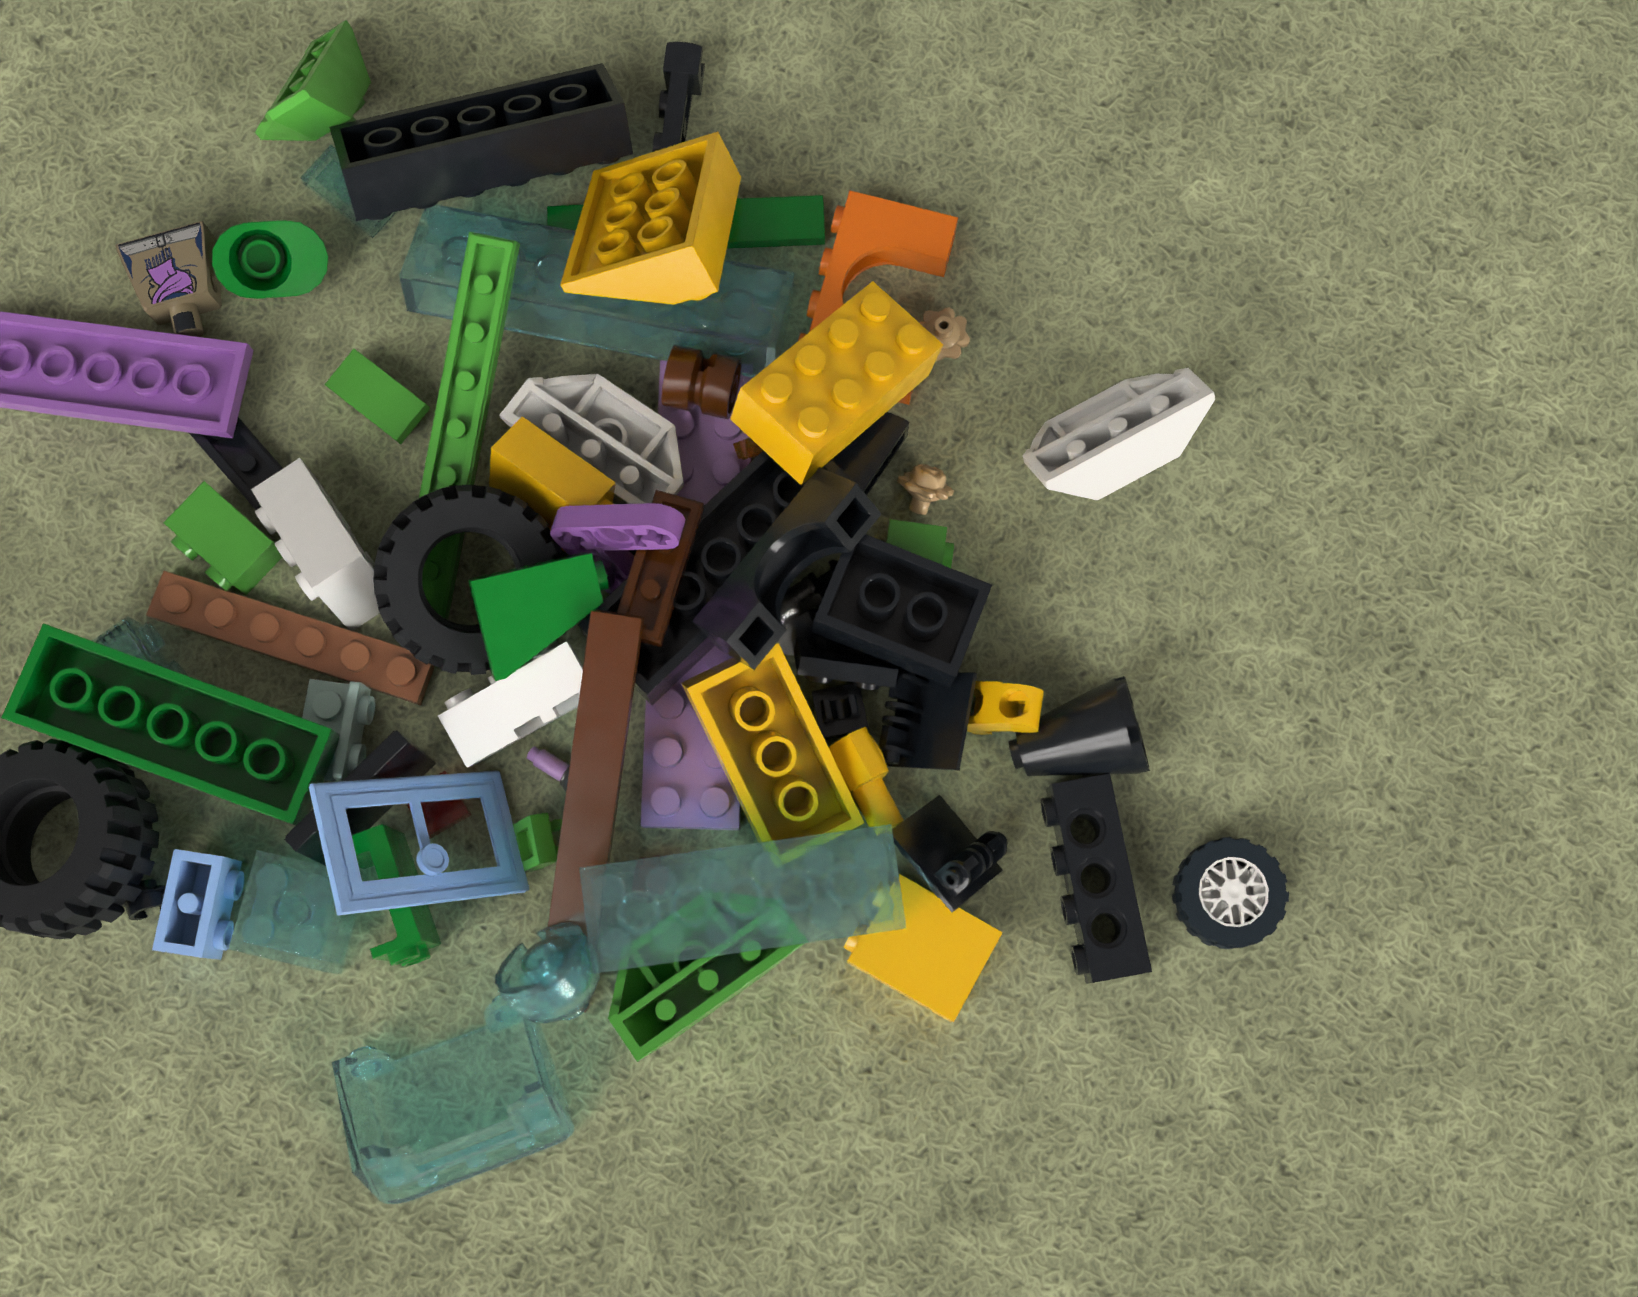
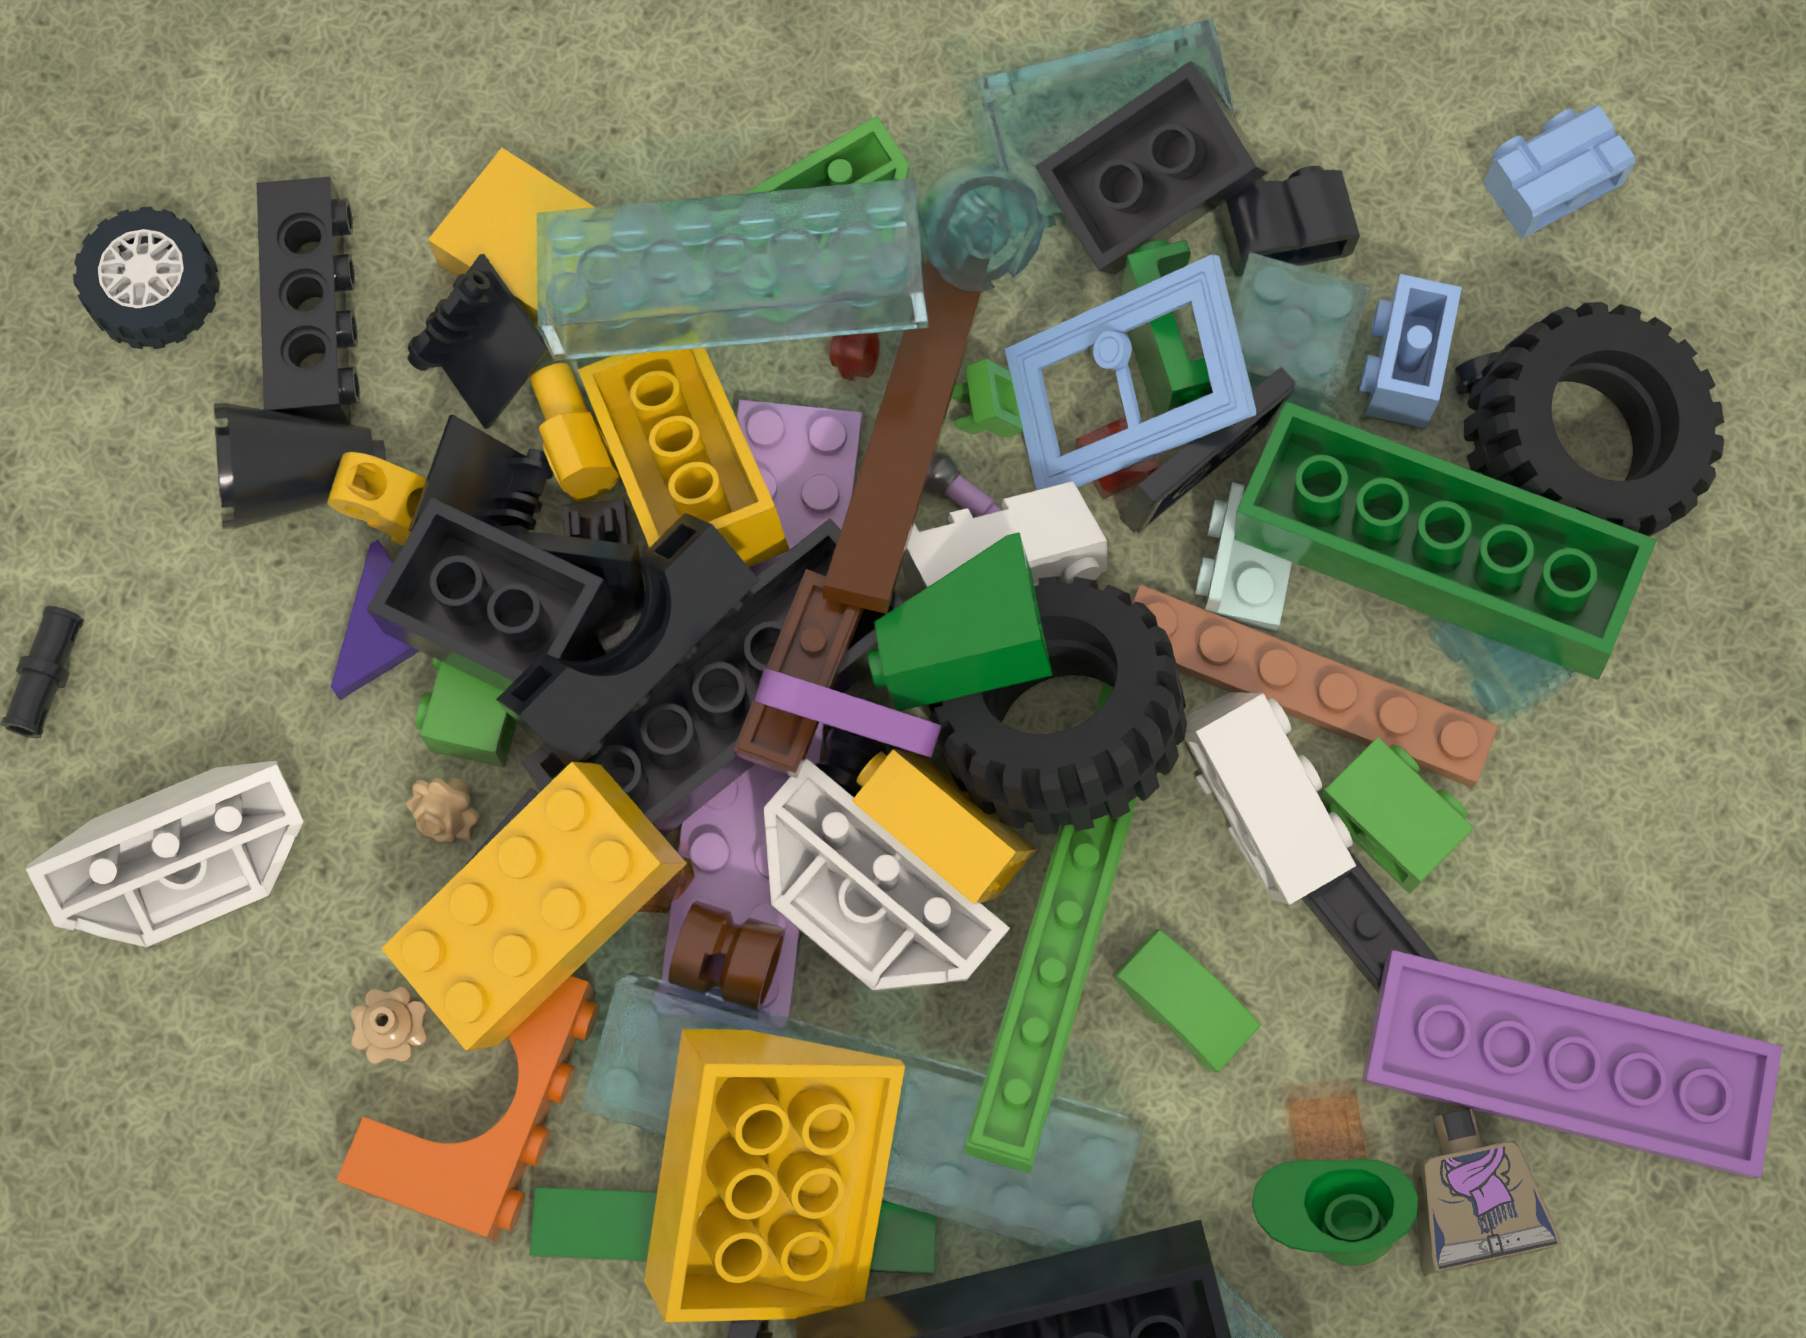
camera: 175 degrees left, 5 degrees down
(72, 1087) = (1558, 170): none -> light blue brick
(279, 322) = (1327, 1129): none -> clear orange tile
(299, 1020) = (1291, 220): none -> black brick
(405, 1037) = (1151, 167): none -> black brick
(997, 628) = (365, 648): none -> dark purple tile
(1242, 565) = (42, 672): none -> black pin

